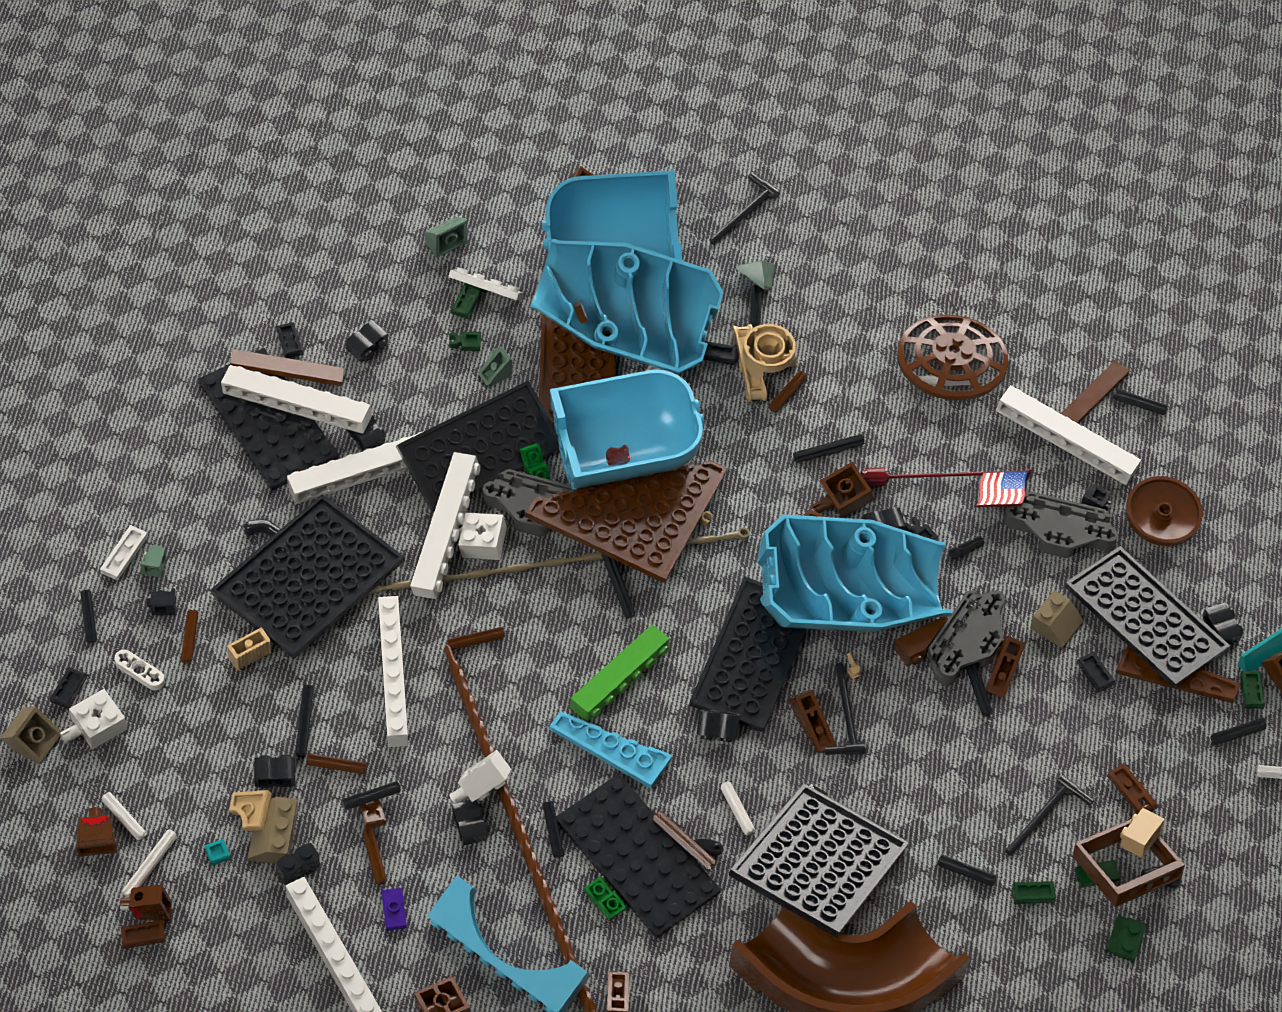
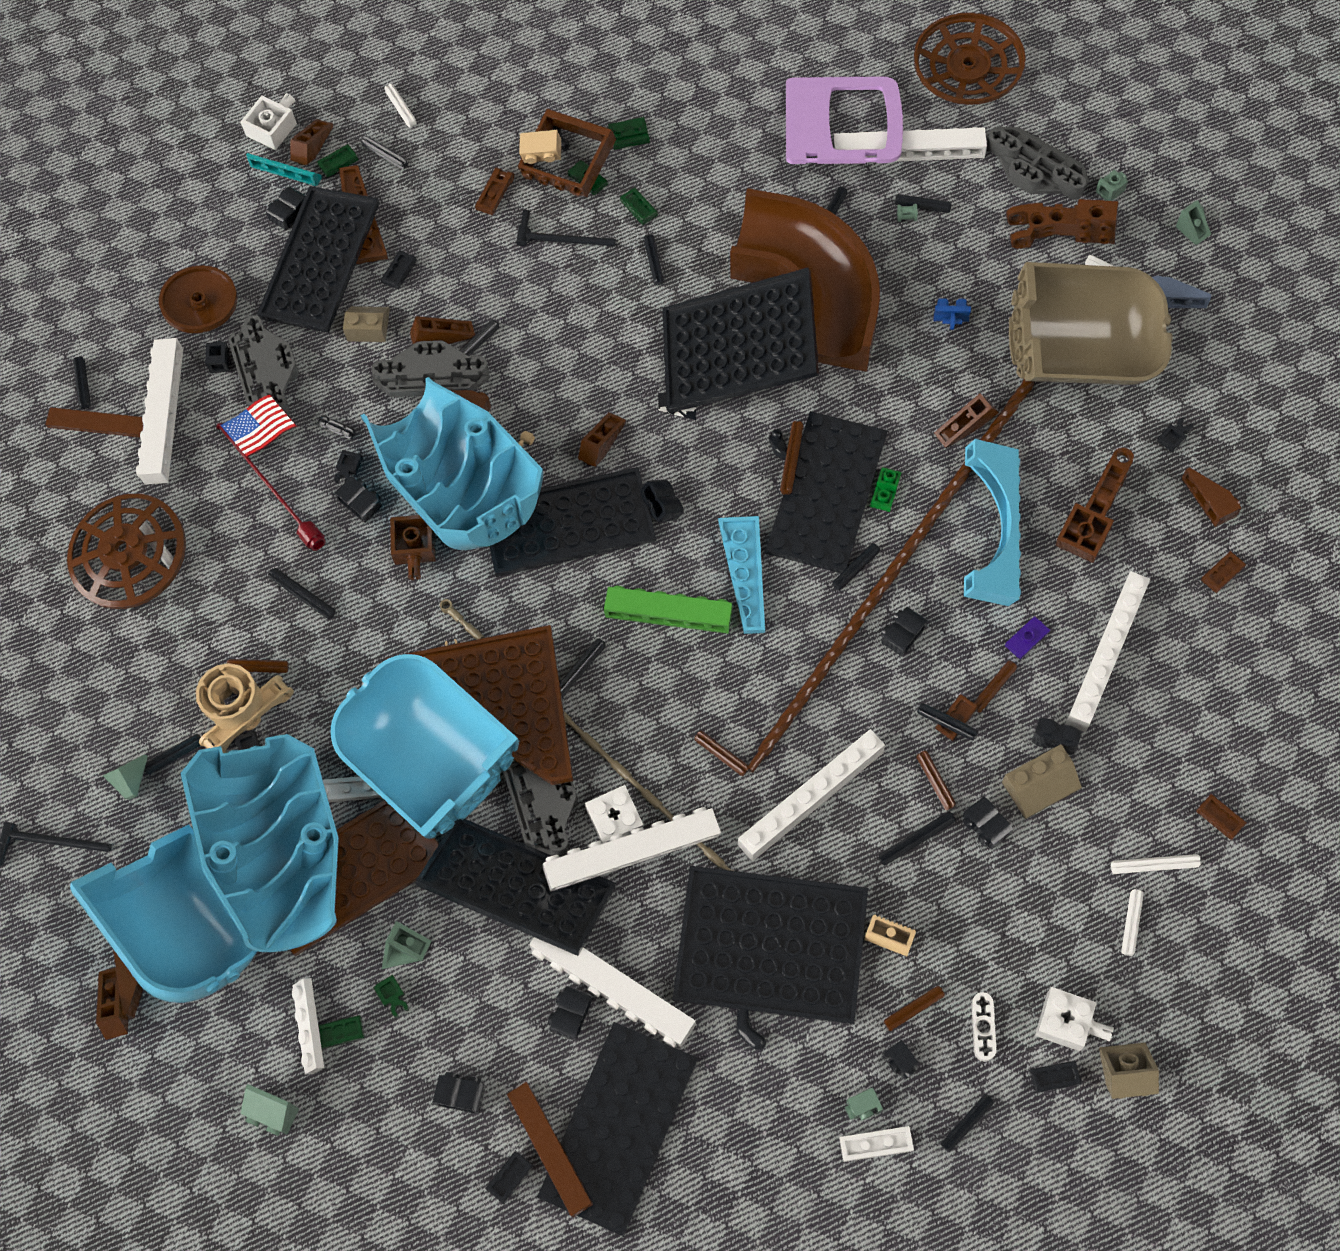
camera: 115 degrees left, 10 degrees up
(95, 834) = (1171, 929): reddish brown torso -> none
(148, 903) = (1197, 829): reddish brown torso -> none
(217, 852) = (1096, 817): teal tile -> none
(251, 807) = (1038, 813): tan tile -> none
(296, 399) = (587, 1101): white brick -> none
(482, 778) = (864, 636): white brick -> none
(534, 461) = (499, 826): green slope -> none
(580, 311) = (305, 876): reddish brown tile -> none
(617, 455) = (443, 749): clear red piece -> none
(737, 808) = (726, 445): white axle -> none
(835, 487) = (347, 555): reddish brown brick -> none
(852, 746) = (601, 397): black bar -> none

